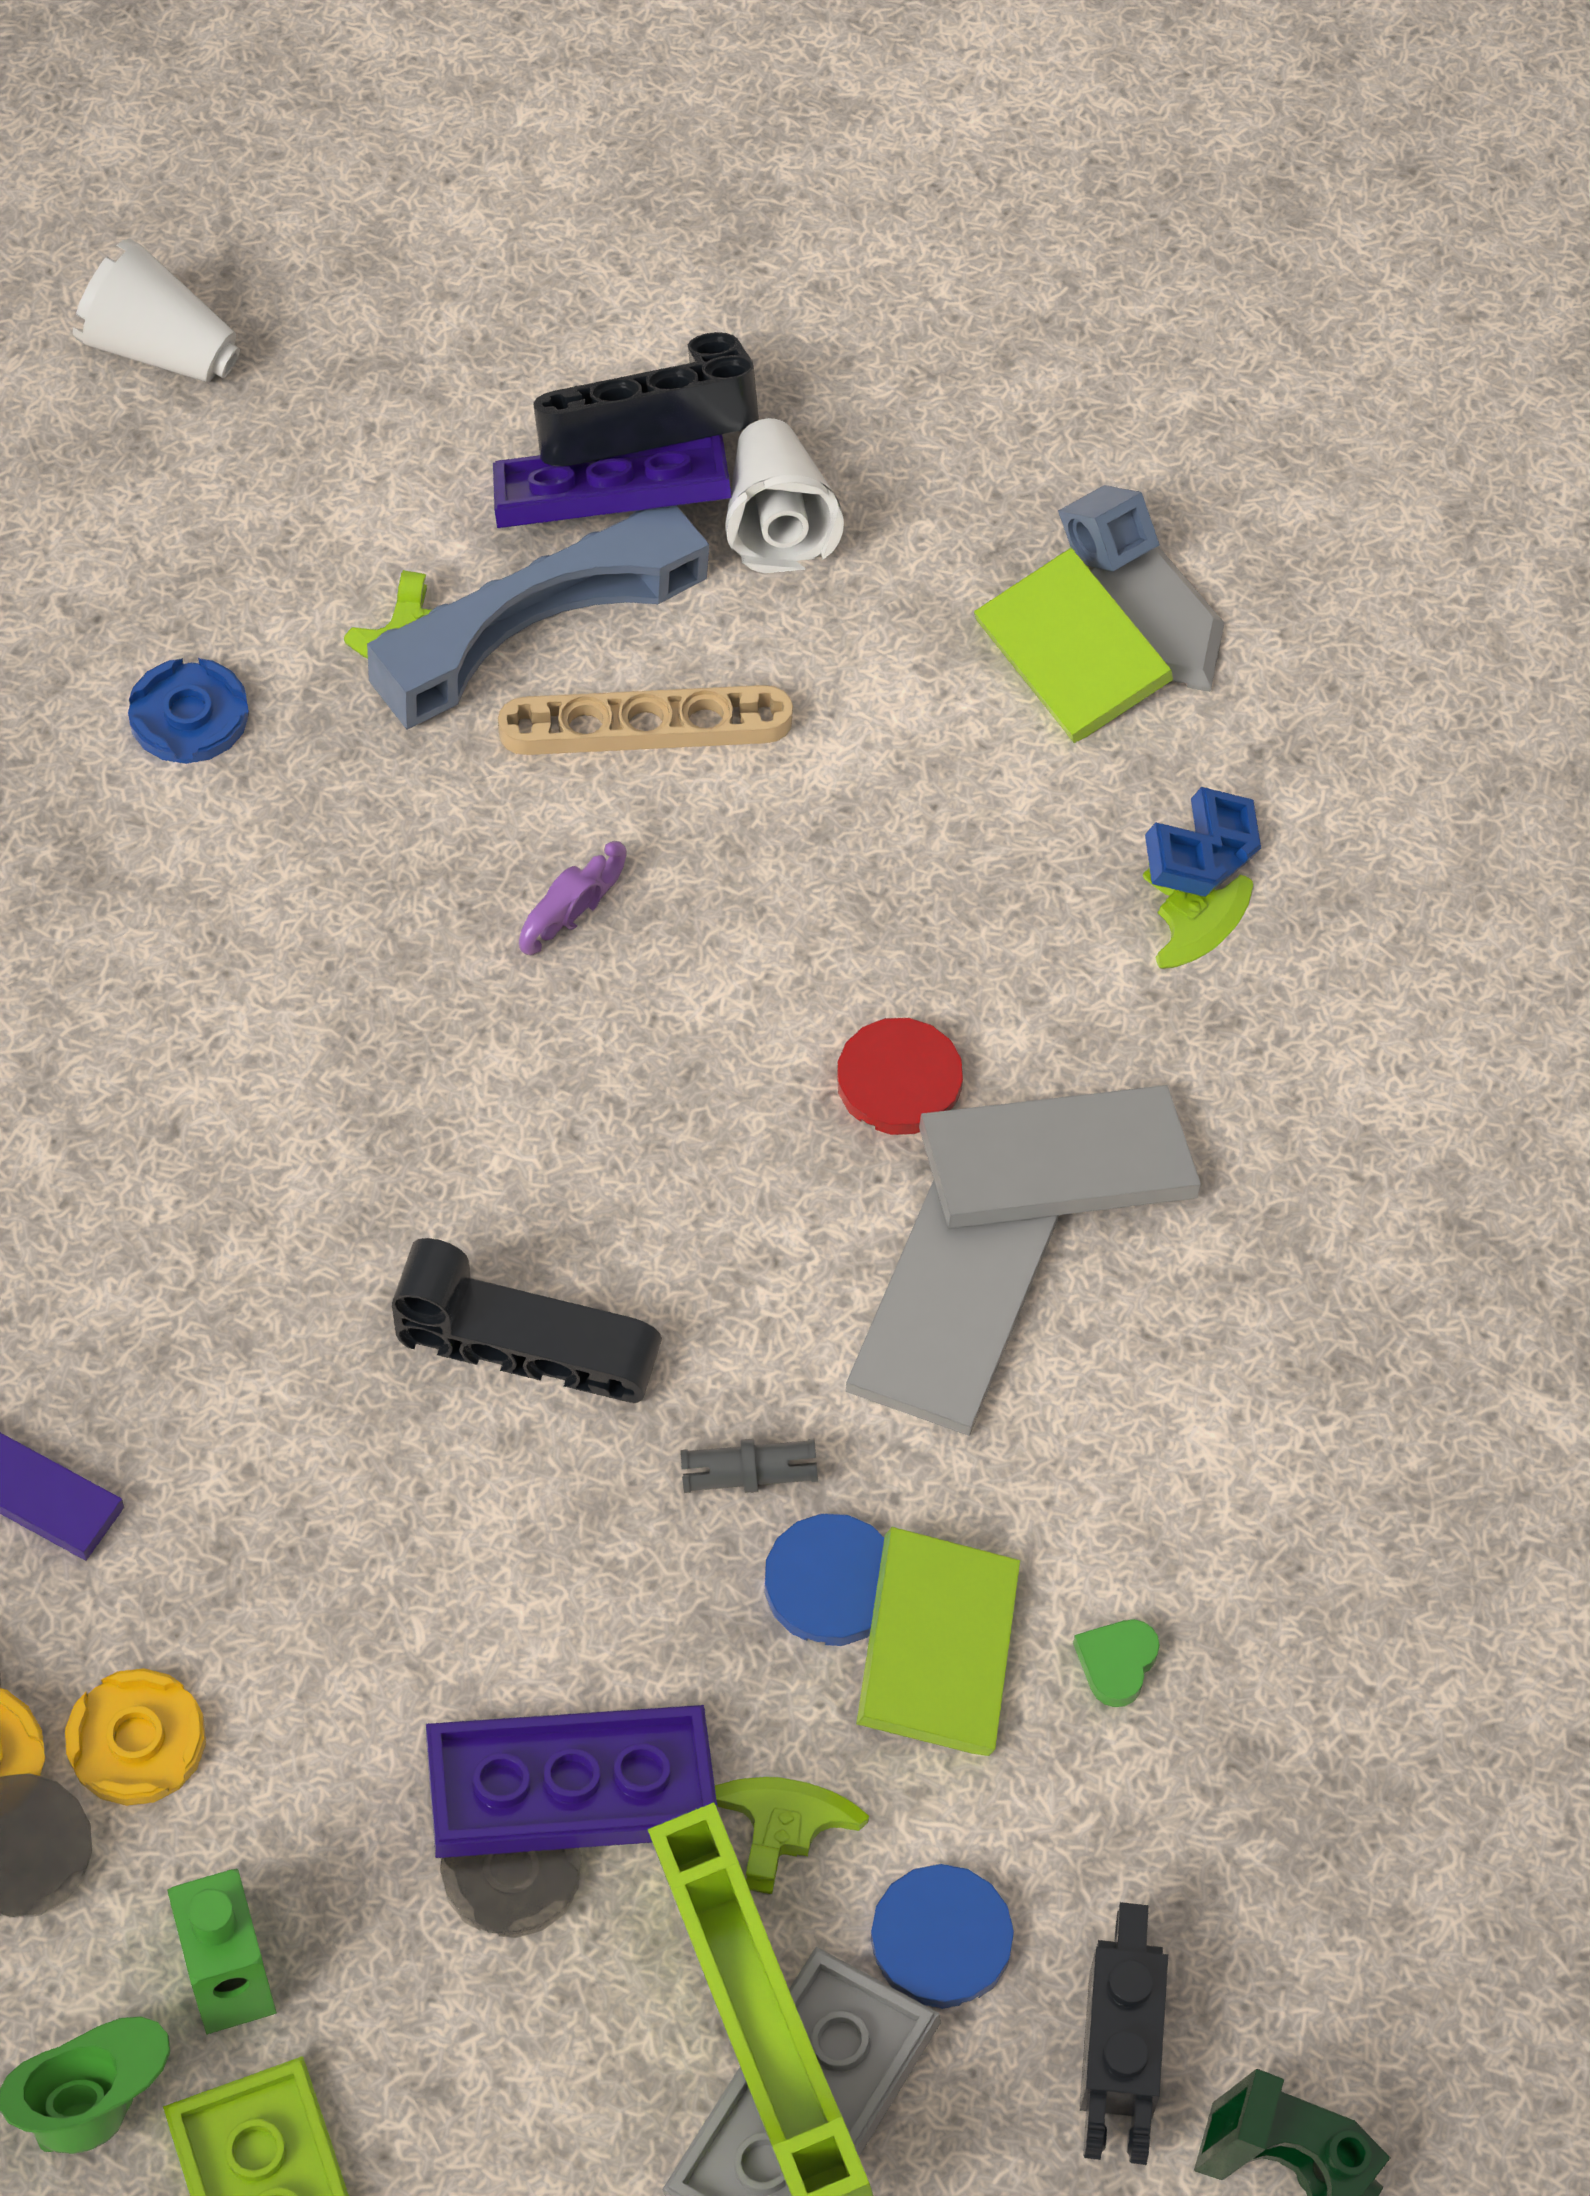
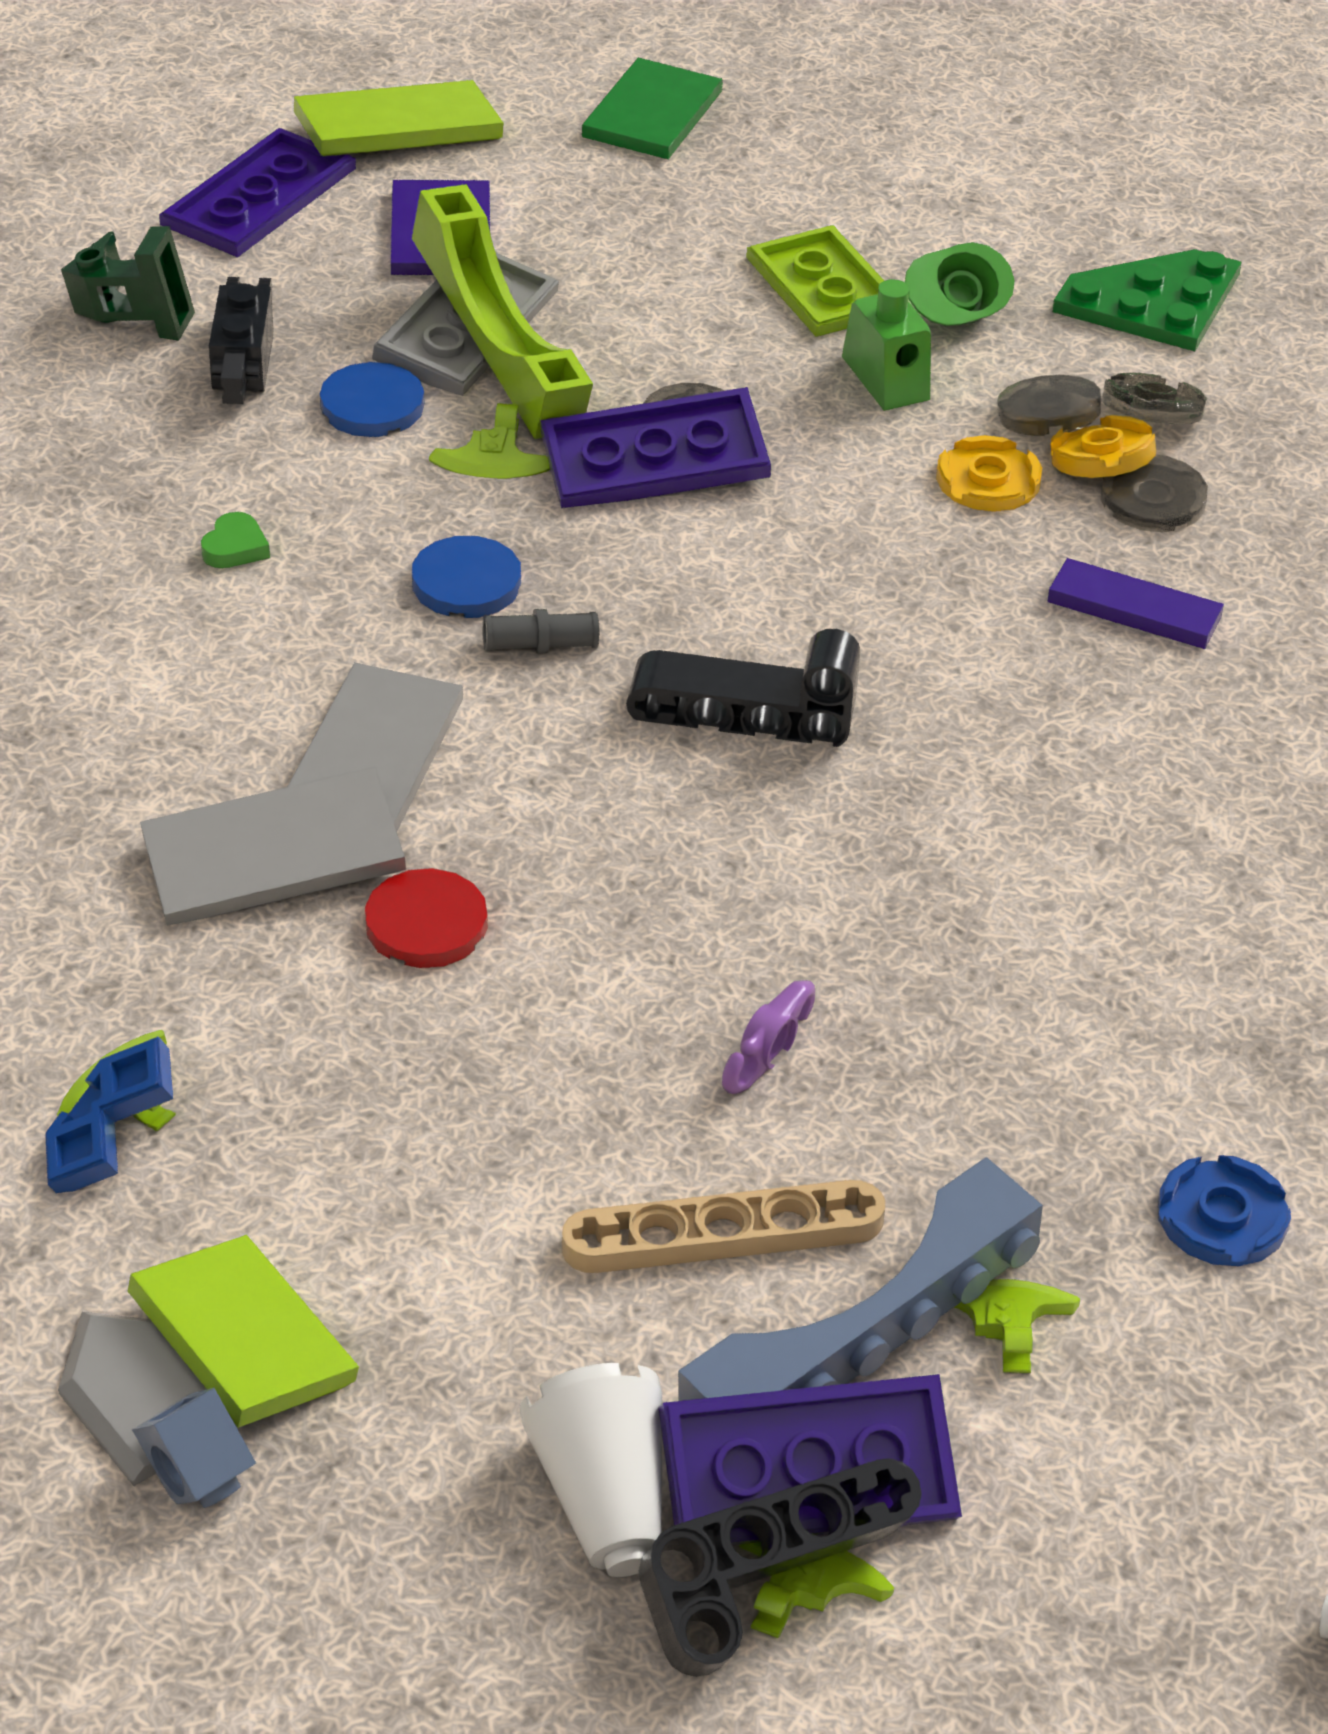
camera: 175 degrees right, 15 degrees down
(939, 1642) = (378, 534): lime tile -> none

